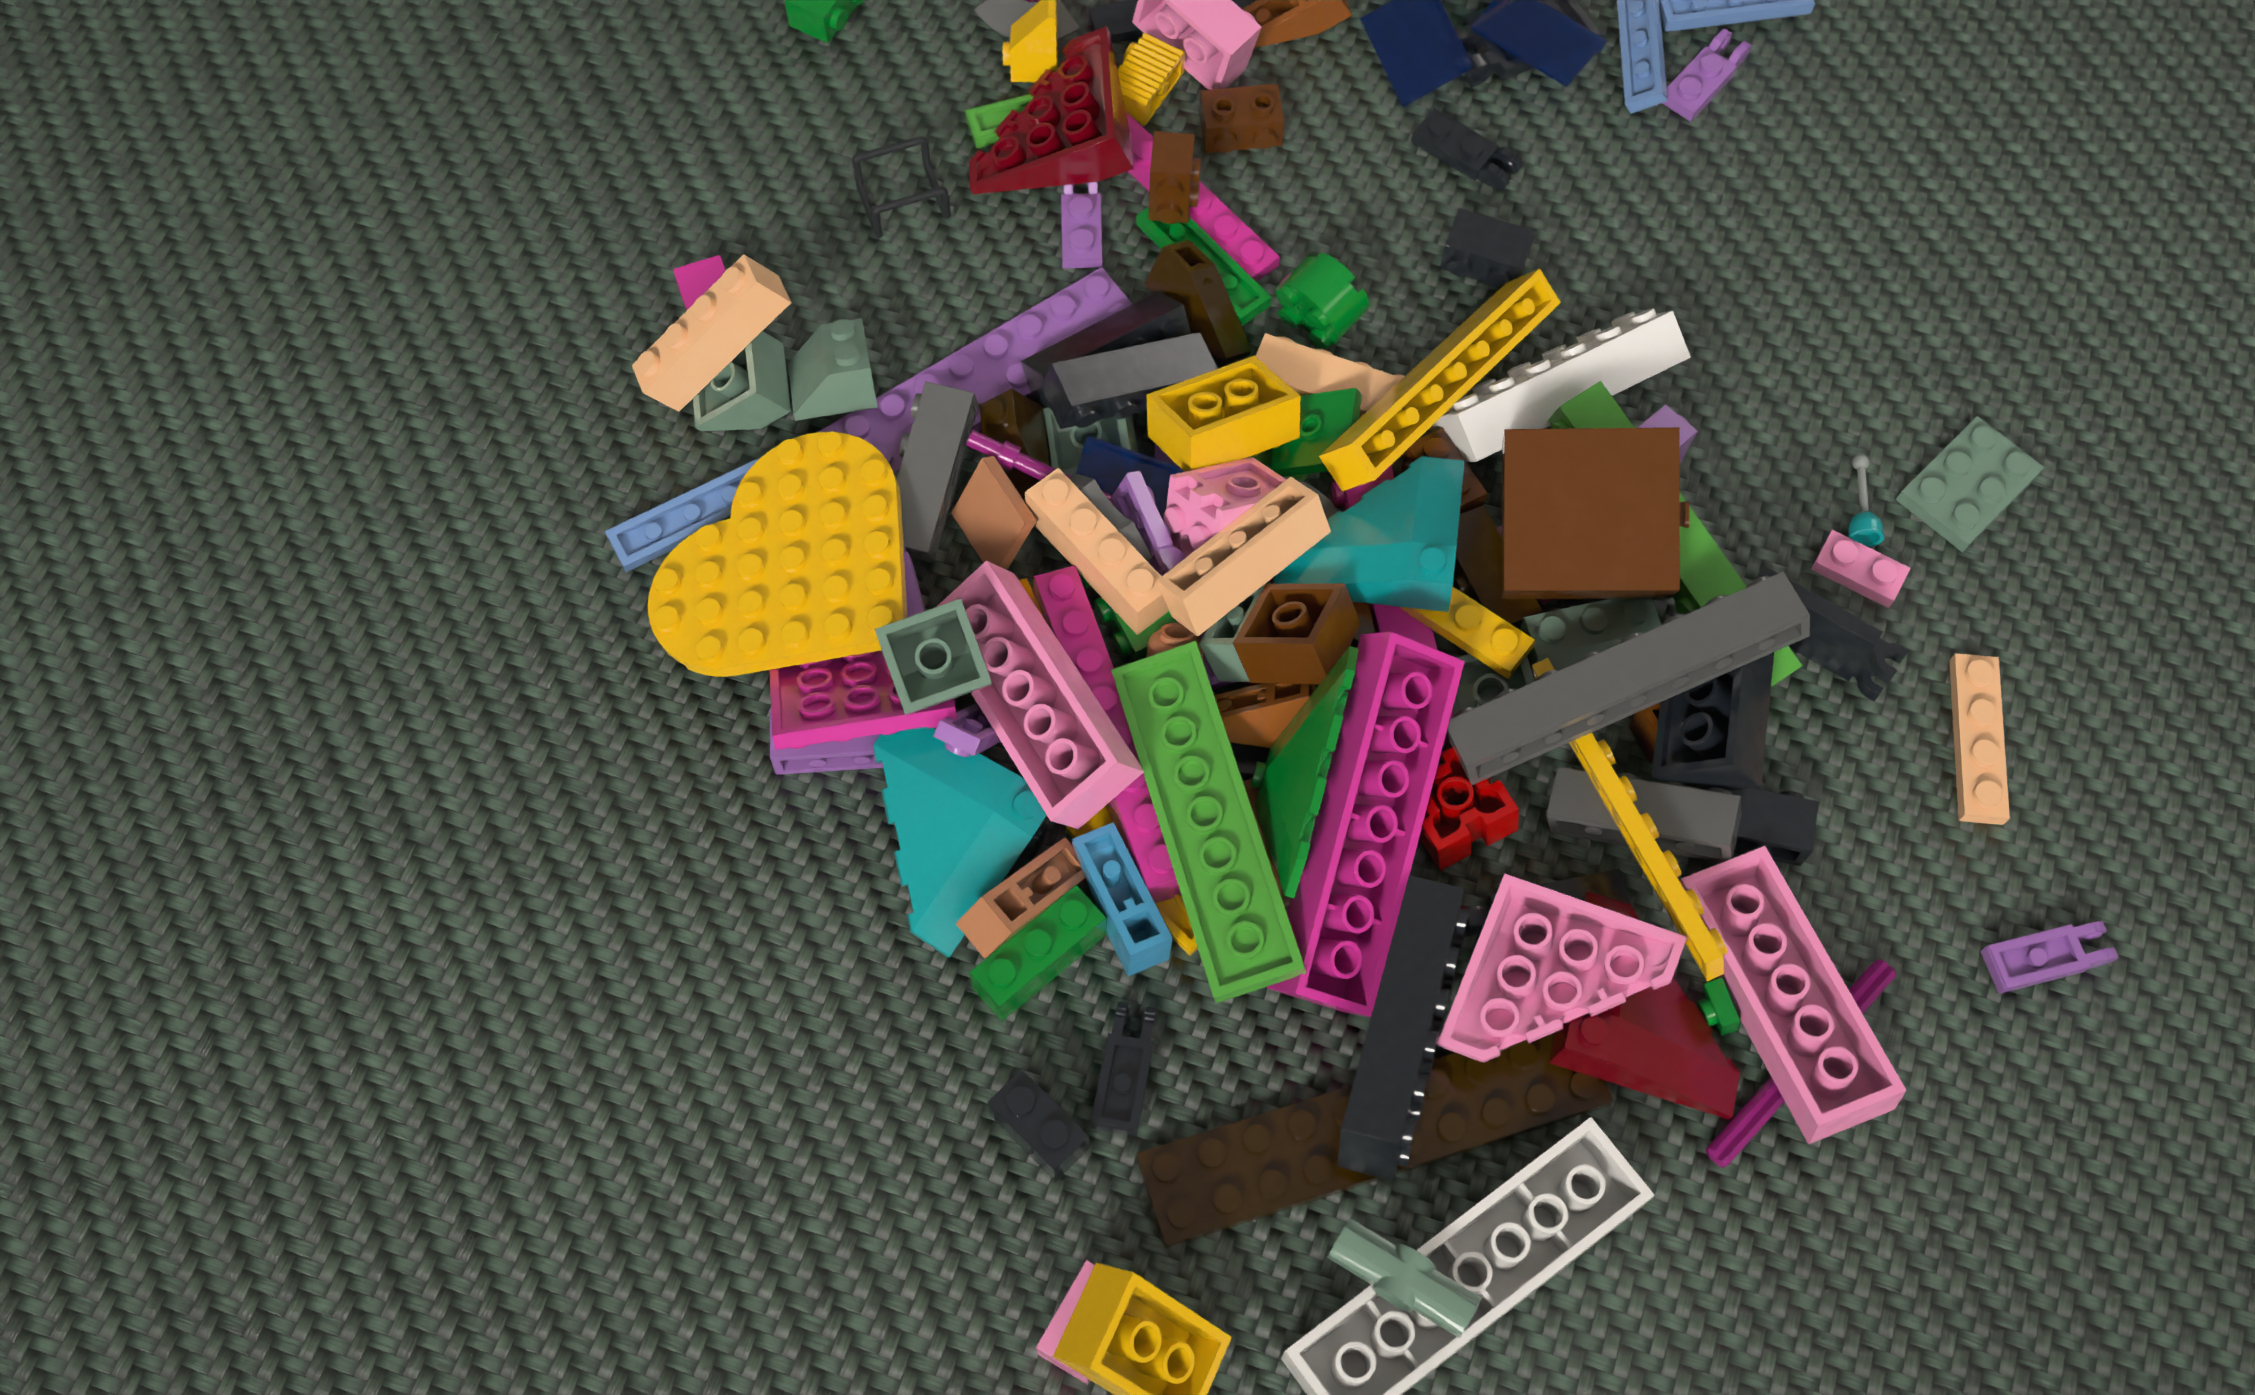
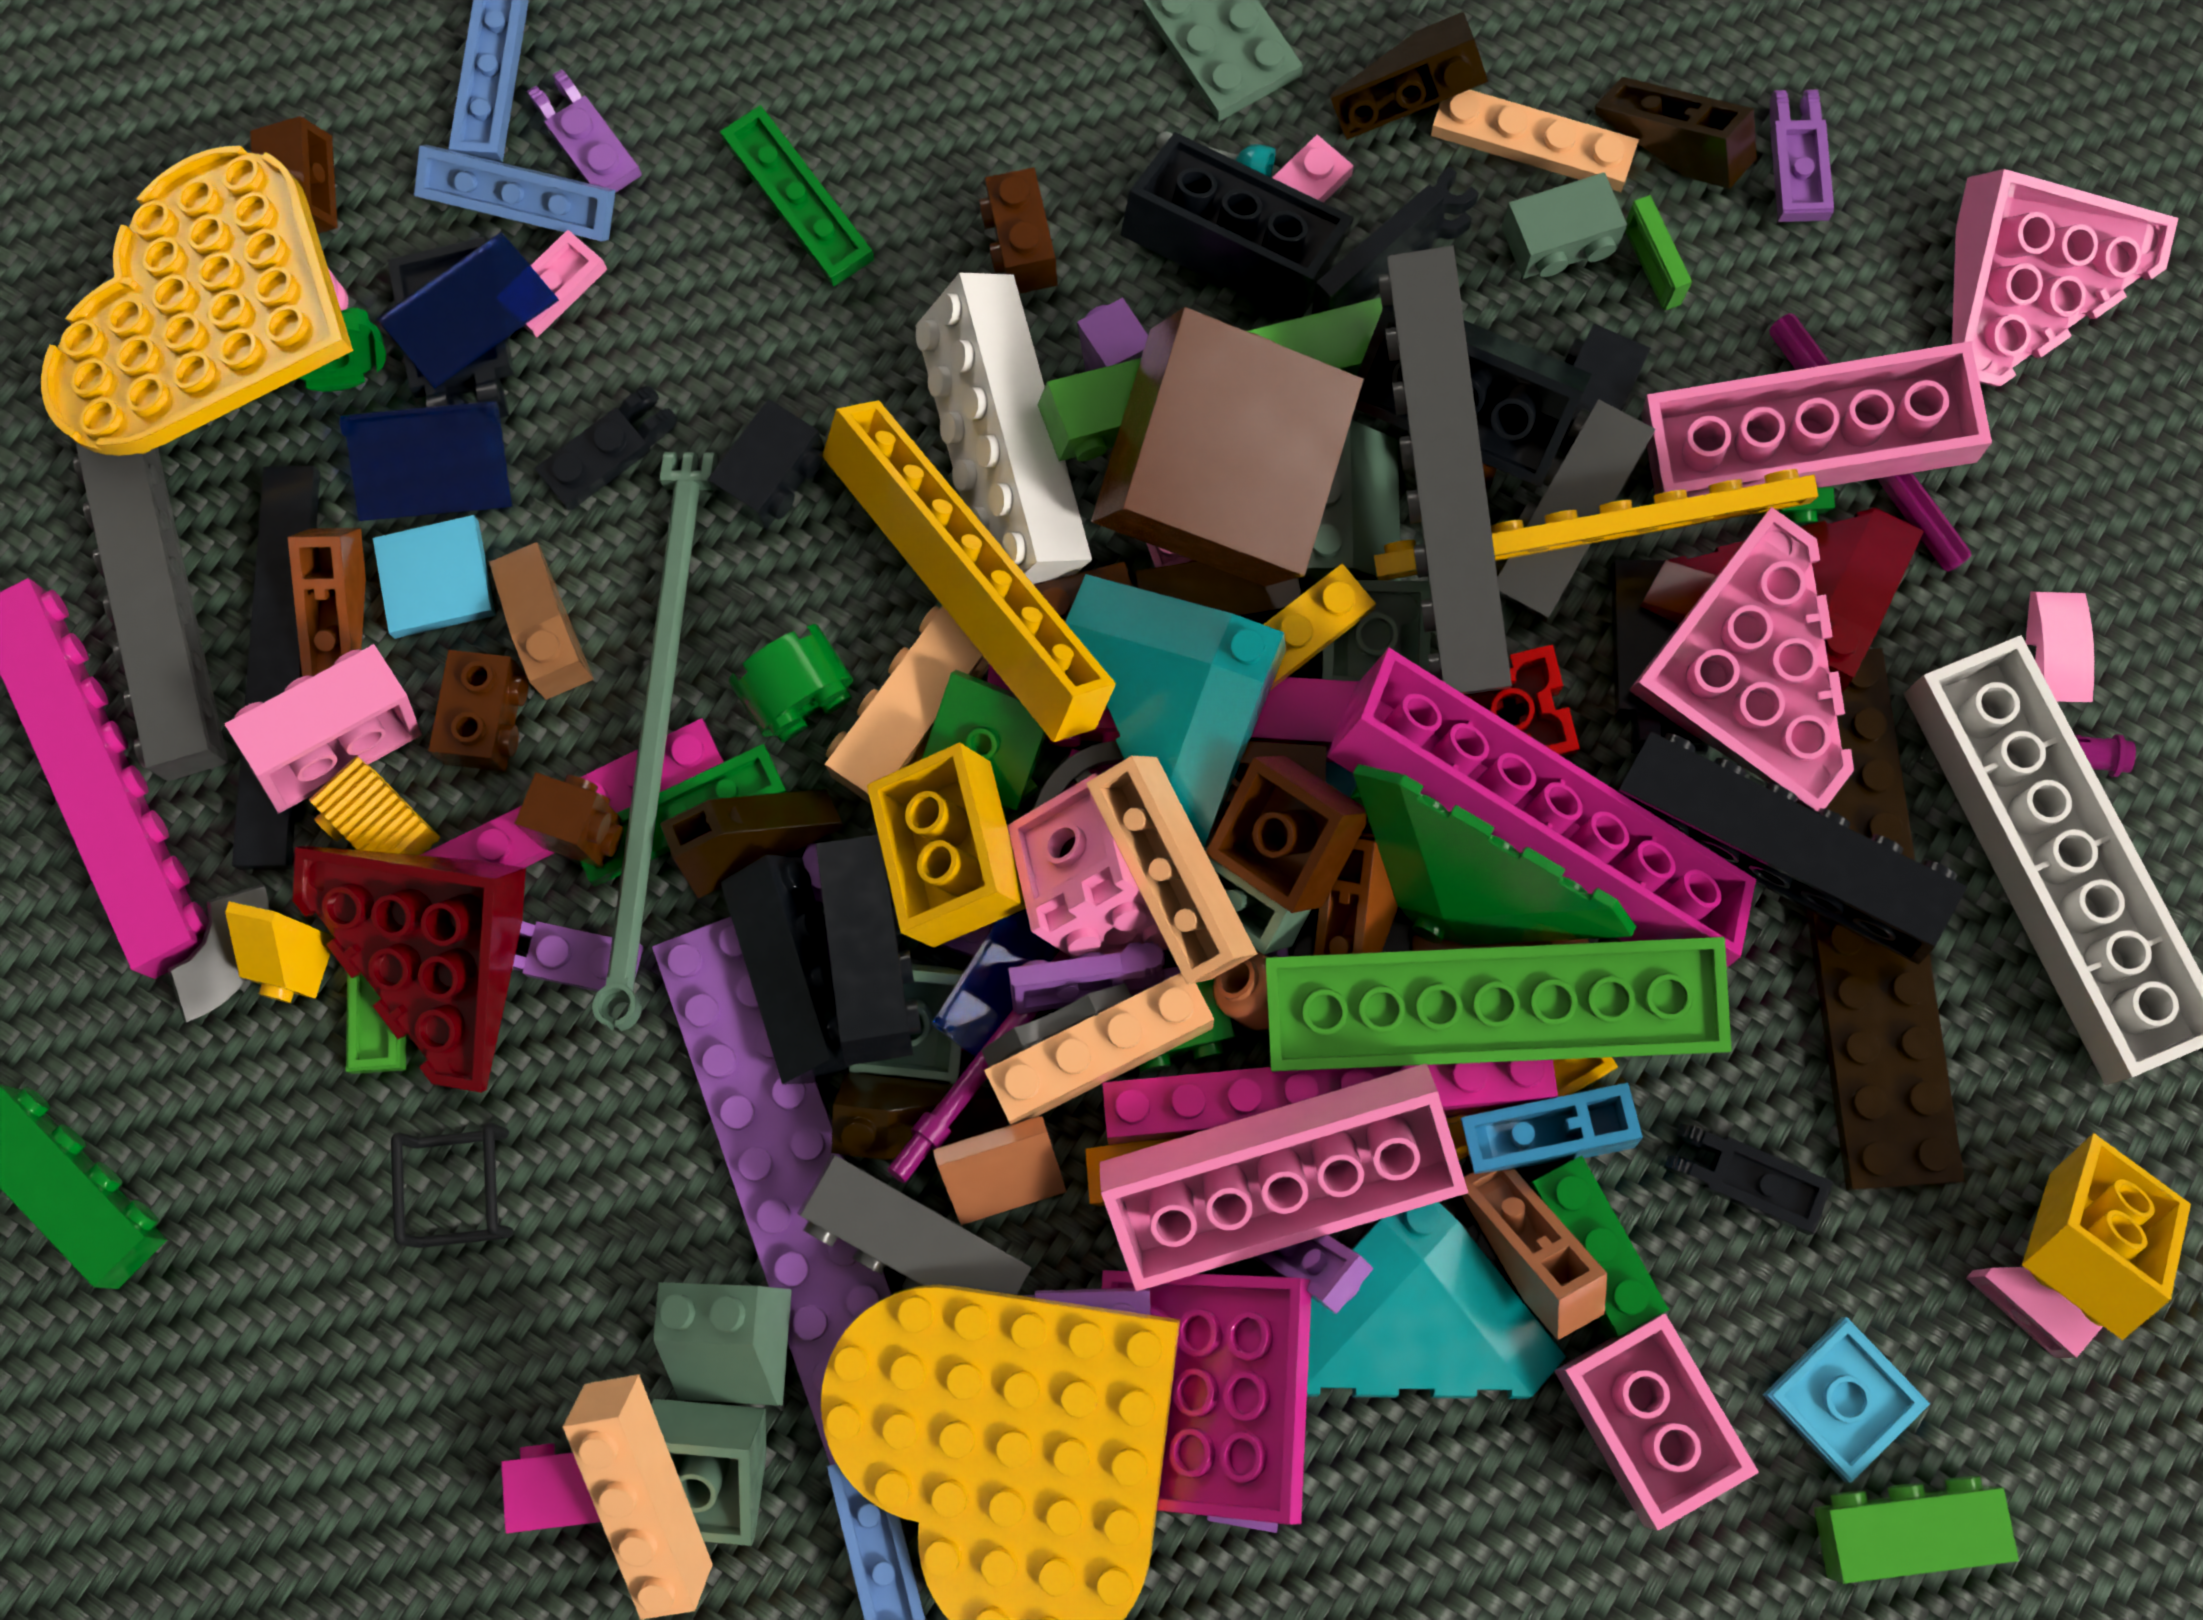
camera: 70 degrees left, 10 degrees up
(868, 1246) = (1915, 1531): none -> bright green brick
(911, 1019) = (1656, 1422): none -> bright pink brick
(933, 657) = (1230, 1291): sand green slope -> none
(964, 1181) = (1846, 1399): none -> medium azure tile
(1038, 1125) = (1807, 1295): black brick -> none
(1050, 242) = (653, 737): none -> sand green hinge
(1316, 140) = (539, 622): none -> medium nougat slope
(1333, 71) = (434, 576): none -> medium azure tile
(1404, 1278) = (2084, 925): sand green piece -> none
(1576, 1304) = (2109, 754): none -> magenta pin
(1589, 89) = (568, 271): none -> bright pink plate
(1665, 1254) = (2064, 643): none -> bright pink slope
(1710, 219) = (797, 195): none -> green plate
(1738, 371) = (1020, 228): none -> reddish brown brick
(1805, 511) = (1234, 225): none -> black slope
(1900, 767) = (1564, 226): none -> sand green brick
(1907, 849) = (1657, 253): none -> bright green tile
(1990, 624) = (1411, 76): none -> dark brown slope
(2026, 1181) = (2040, 261): none -> bright pink slope
(2032, 851) = (1685, 130): none -> dark brown slope

